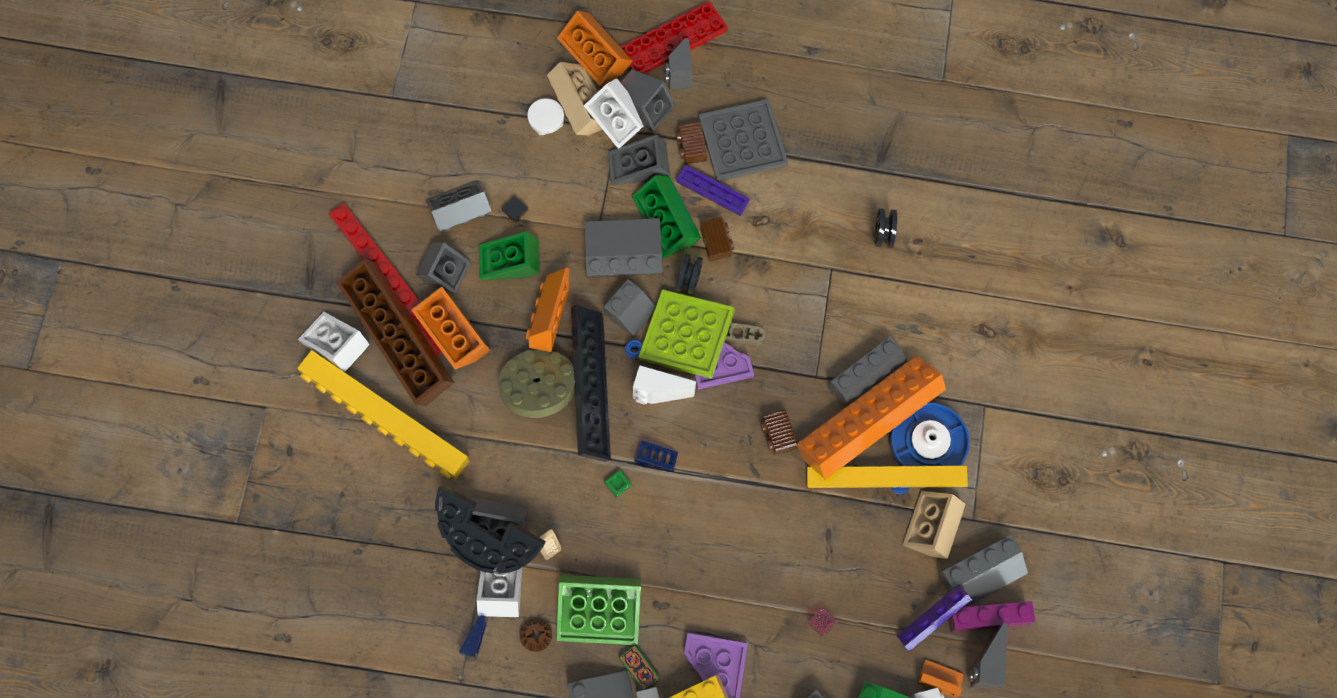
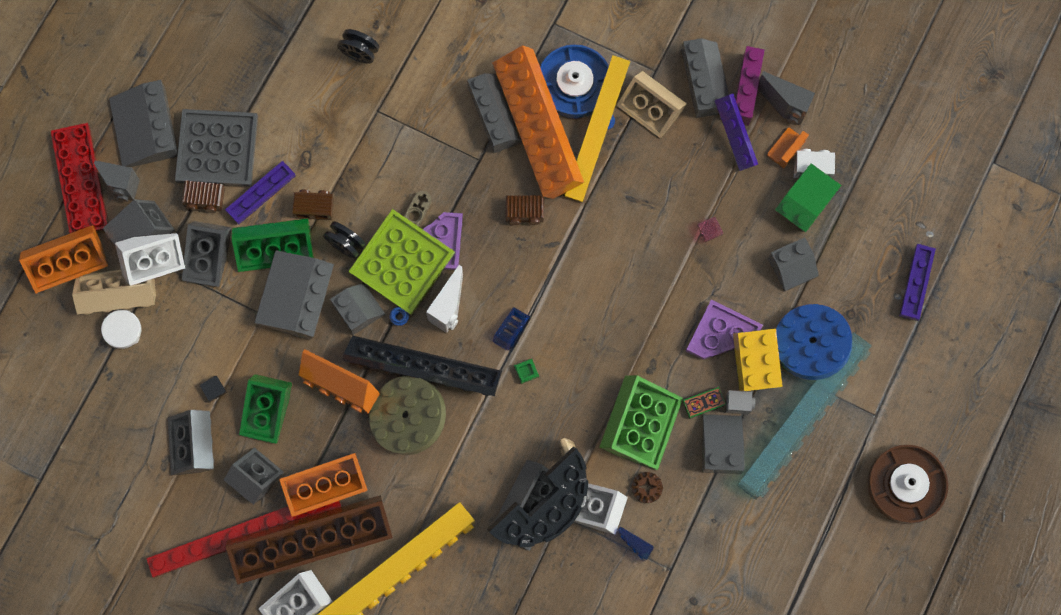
camera: 75 degrees left, 5 degrees up
(743, 74) = (143, 124): none -> dark grey slope

